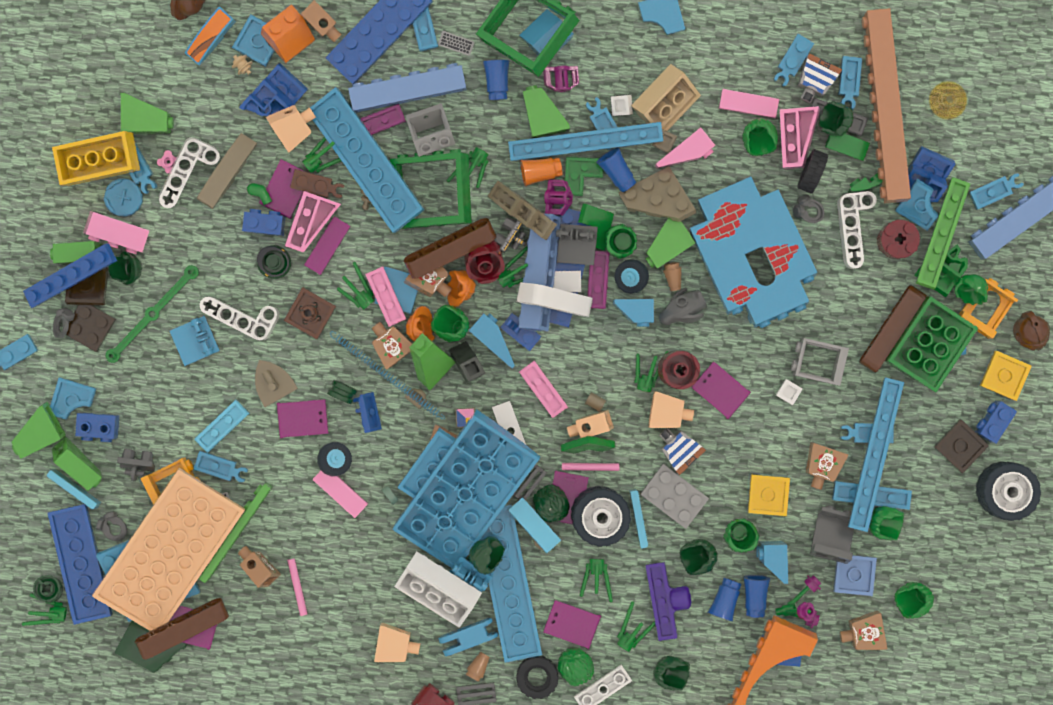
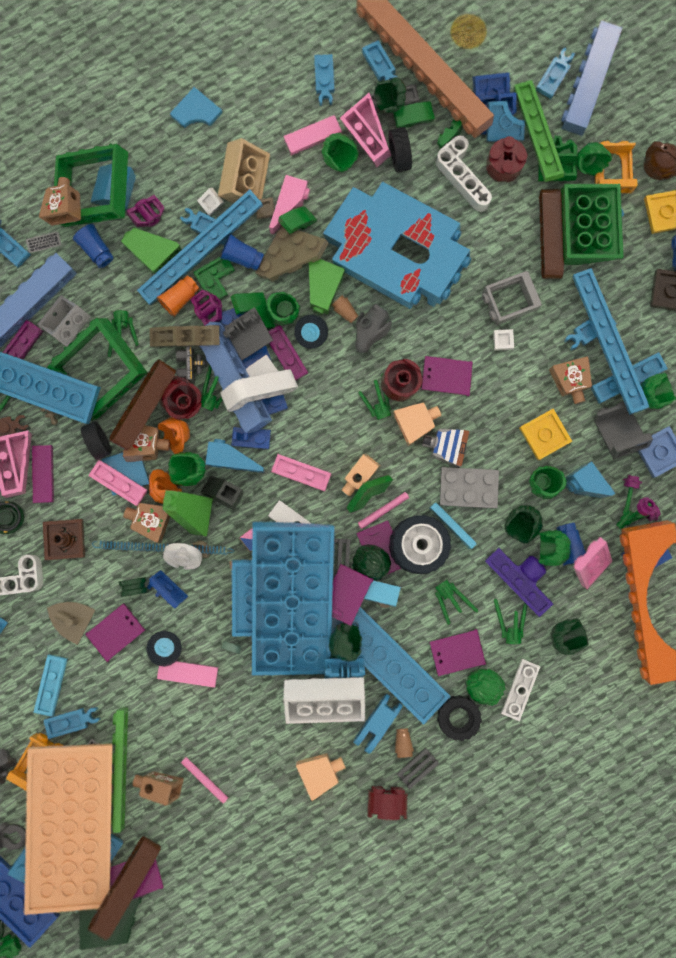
camera: 35 degrees left, 5 degrees down
(363, 298) = (101, 497): green plant -> none
(391, 249) = (96, 440): none -> black tyre
(400, 393) = (182, 555): none -> white tile
(493, 29) = (61, 204): none -> medium nougat torso
(515, 517) = (348, 593): none -> magenta container
(595, 401) = (351, 453): dark tan hinge -> none
(636, 310) = (333, 354): dark azure slope -> none
(684, 172) = (297, 219): none -> green slope
(708, 593) = (554, 548): none -> green hair
(731, 627) = (593, 562): none -> bright pink plate
(756, 595) = (592, 522): blue plant -> none
(800, 212) = (412, 191): dark grey piece -> none
(816, 77) = (352, 77): torso -> none

